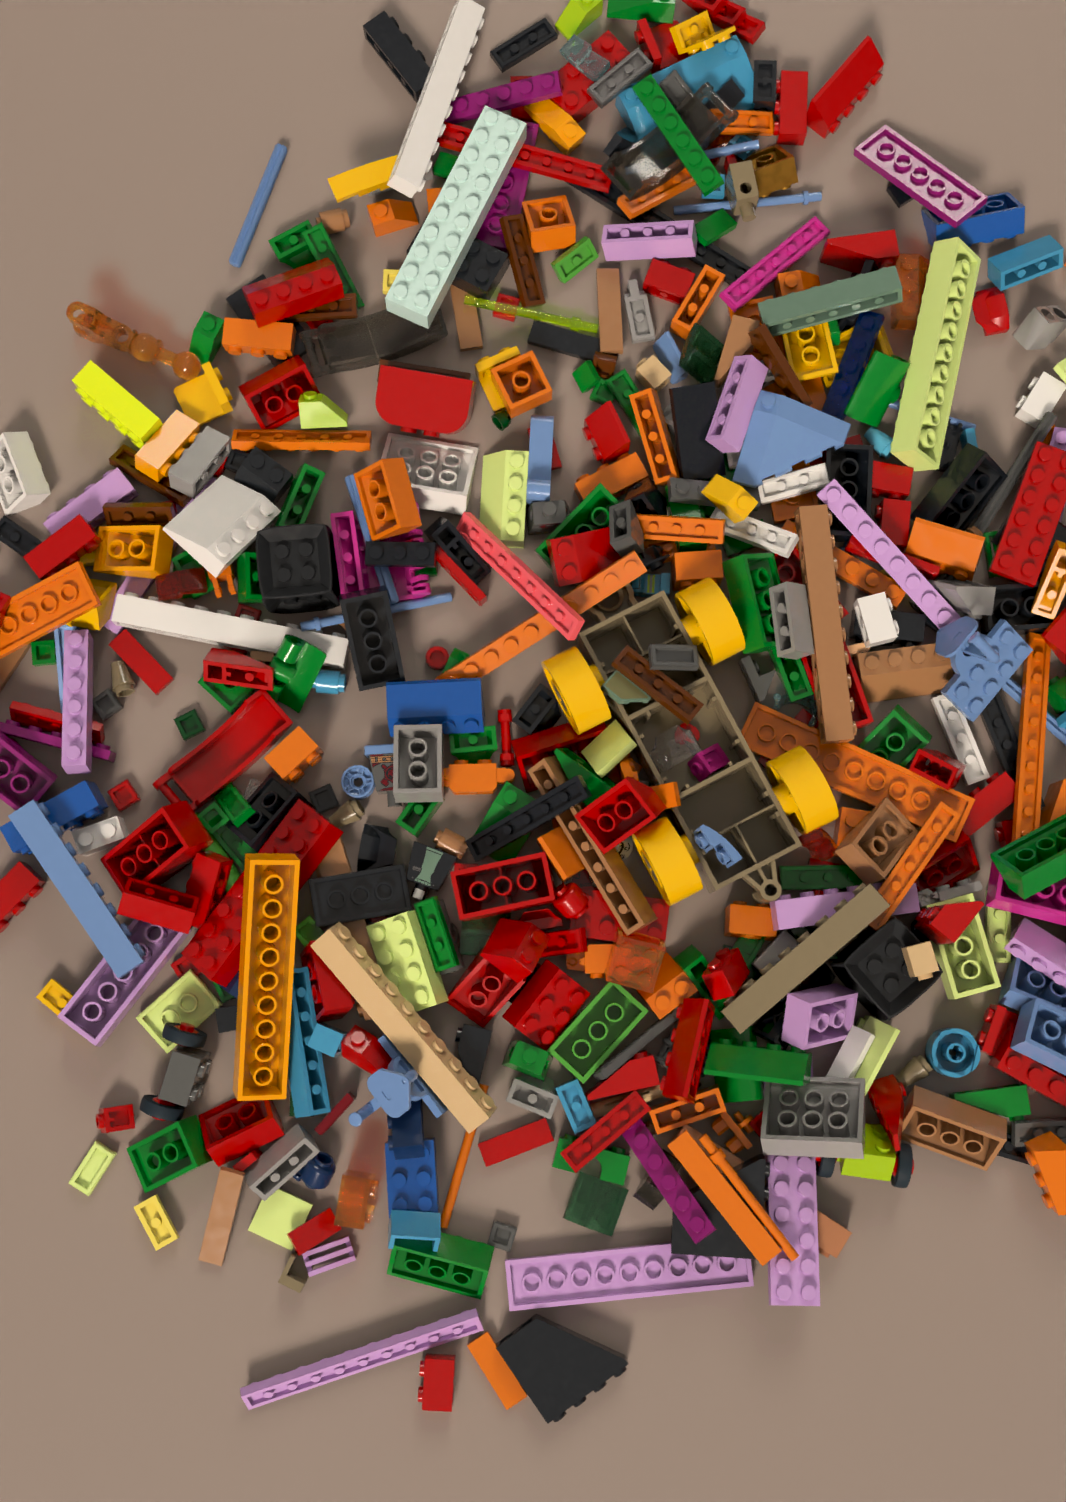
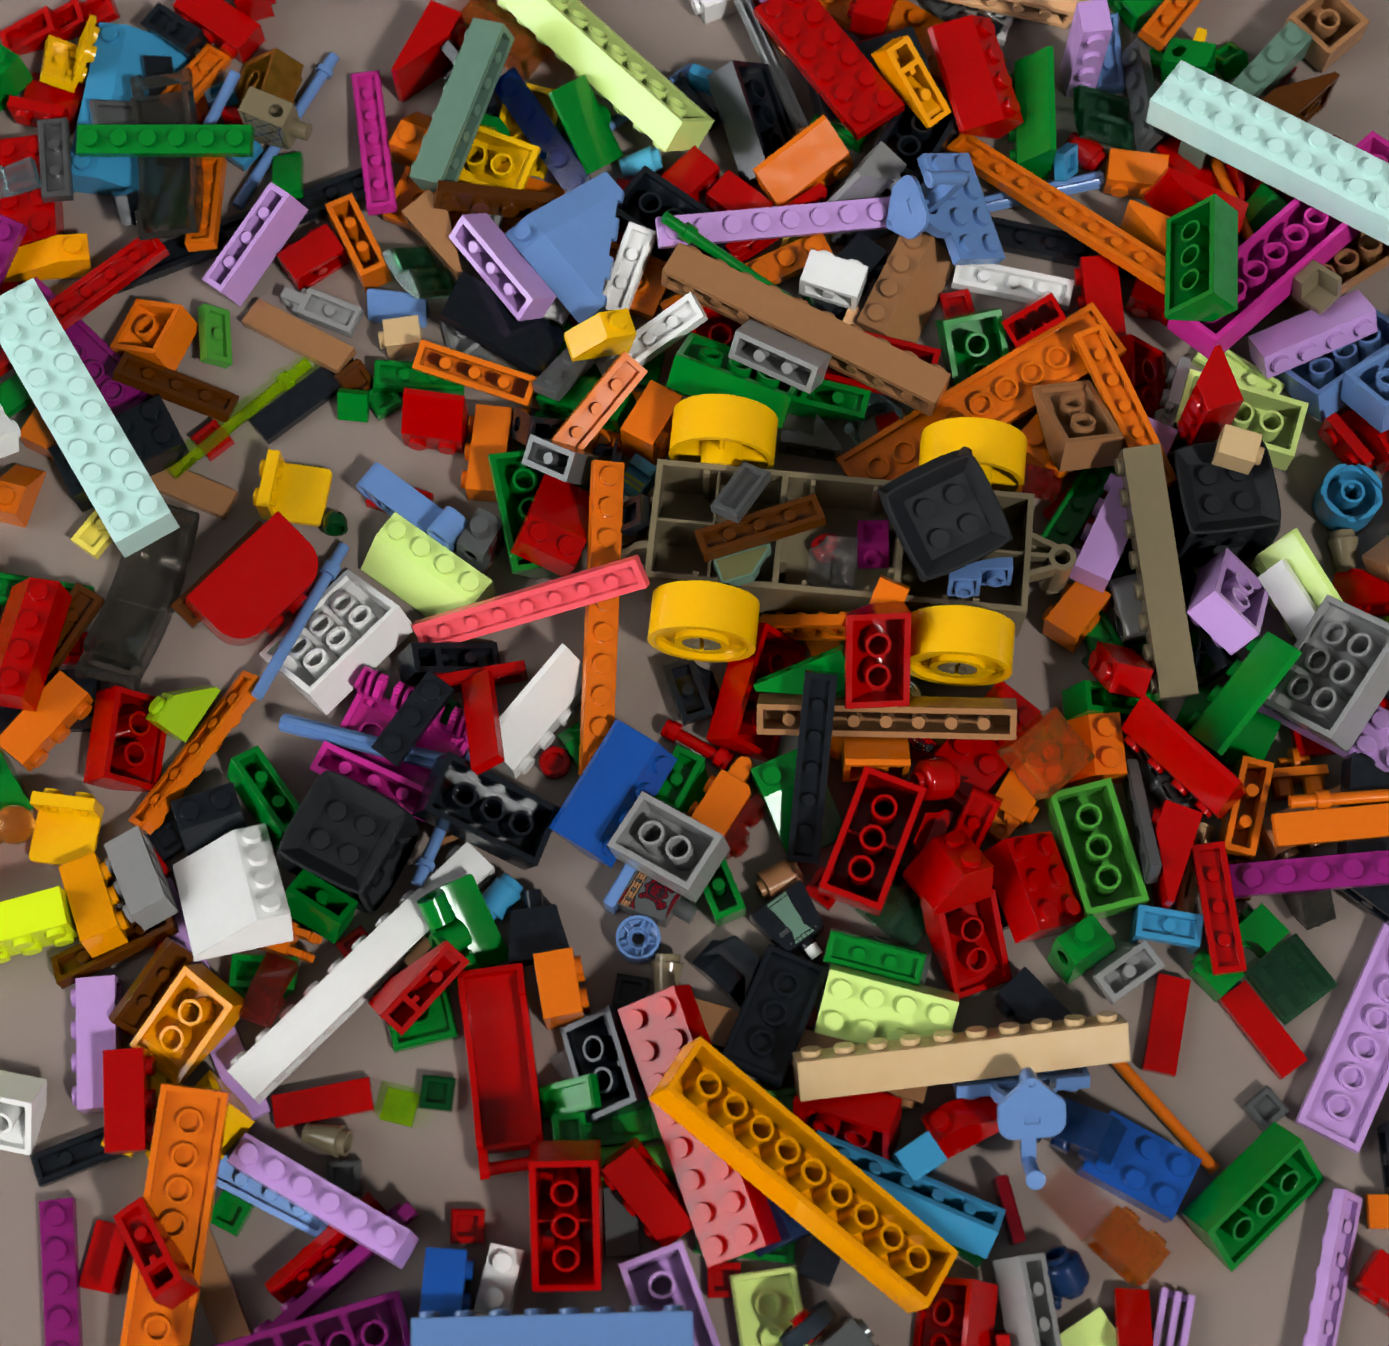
camera: 55 degrees left, 10 degrees down
(158, 905) = (636, 1252): red brick -> none
(167, 708) = (400, 1107): none -> clear neon green tile
(322, 718) = (534, 929): none -> black torso
(387, 498) = (341, 690): orange slope -> none
(414, 1226) = (1200, 1192): dark azure panel -> none
(423, 597) = (482, 722): none -> red tile
(456, 626) = (540, 711): none -> white slope
(461, 800) = (738, 835): none -> clear red slope
(467, 438) = (328, 573): none -> medium blue bar
(521, 384) = (314, 472): orange brick -> none
(551, 1205) = (1262, 1029): none -> red tile
(609, 748) = (791, 630): yellowish green tile -> none
(618, 601) = (635, 514): none -> black tile
(736, 796) = (945, 514): none -> black piece
(836, 509) = (689, 234): none -> green bar
(920, 710) = (956, 303): none -> red tile

